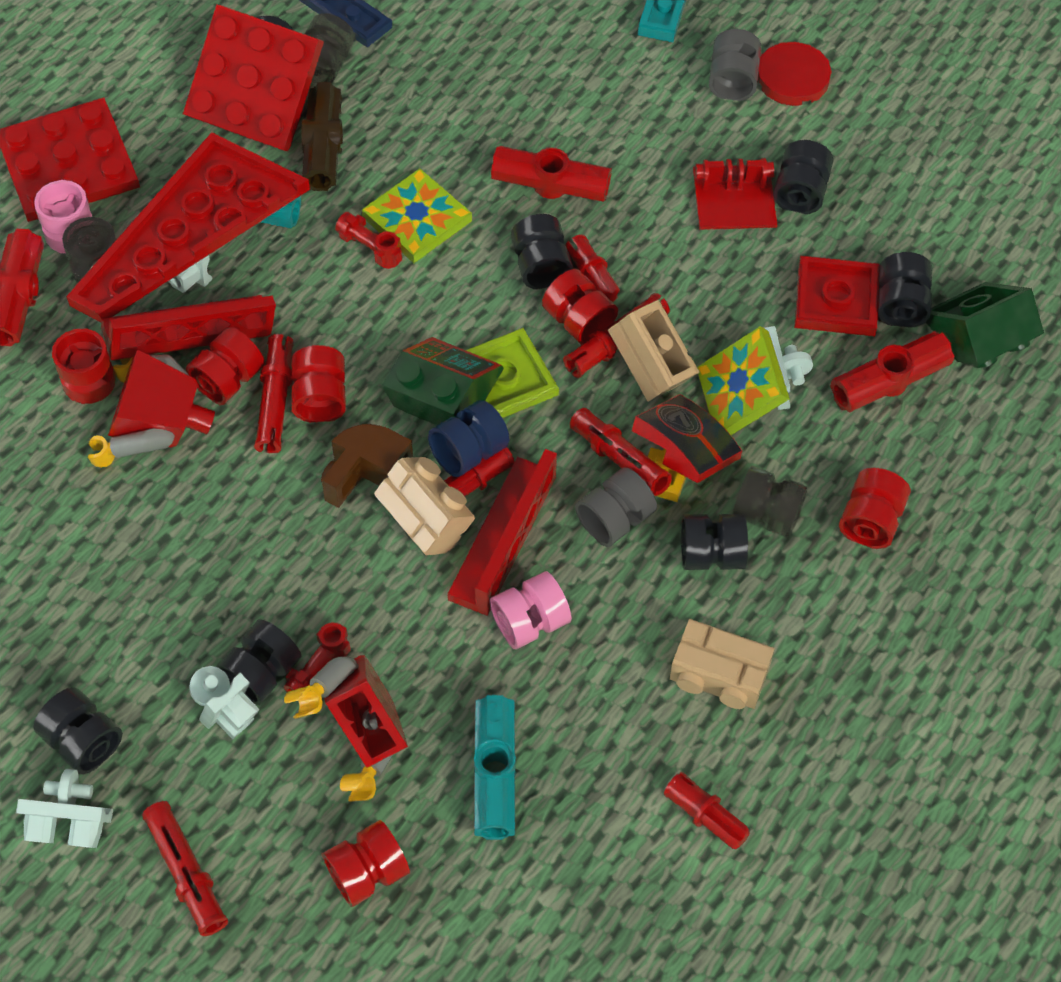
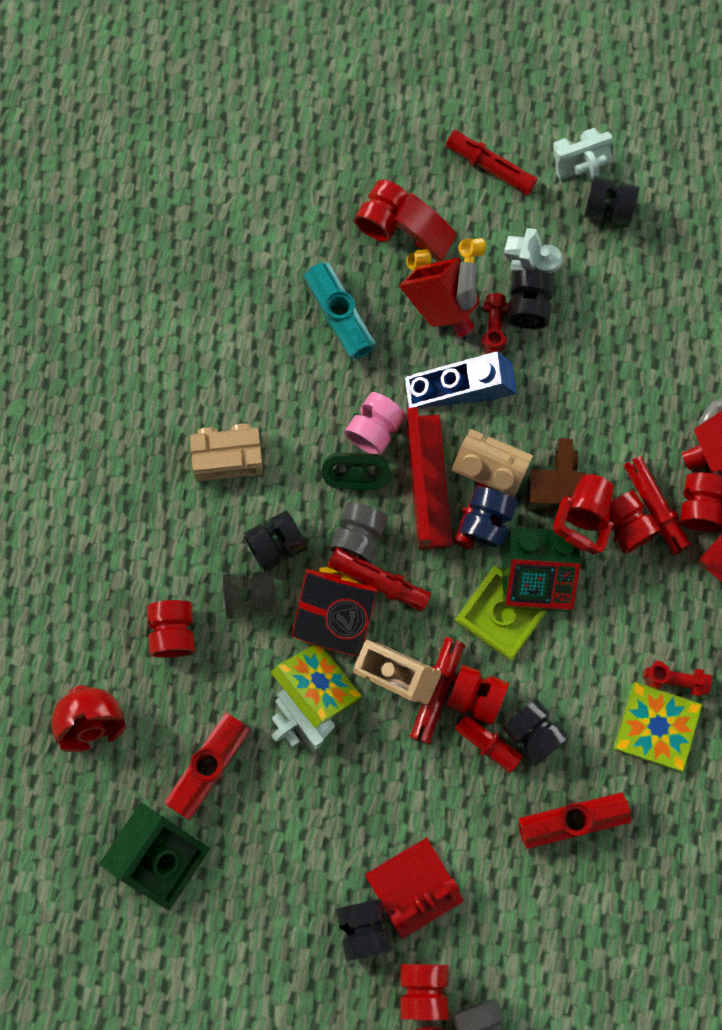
camera: 150 degrees right, 15 degrees up
(329, 813) = (425, 226): none -> red slope
(357, 394) = (587, 510): none -> red piece
(400, 612) = (462, 382): none -> blue slope
(582, 576) = (356, 473): none -> dark green plate
(706, 810) = (189, 351): red axle -> none
(771, 112) = (424, 992): none -> red wheel
(837, 296) = (283, 823): red plate -> none
(905, 290) = (231, 863): black wheel -> none
(1006, 463) = (86, 716): none -> red cylinder

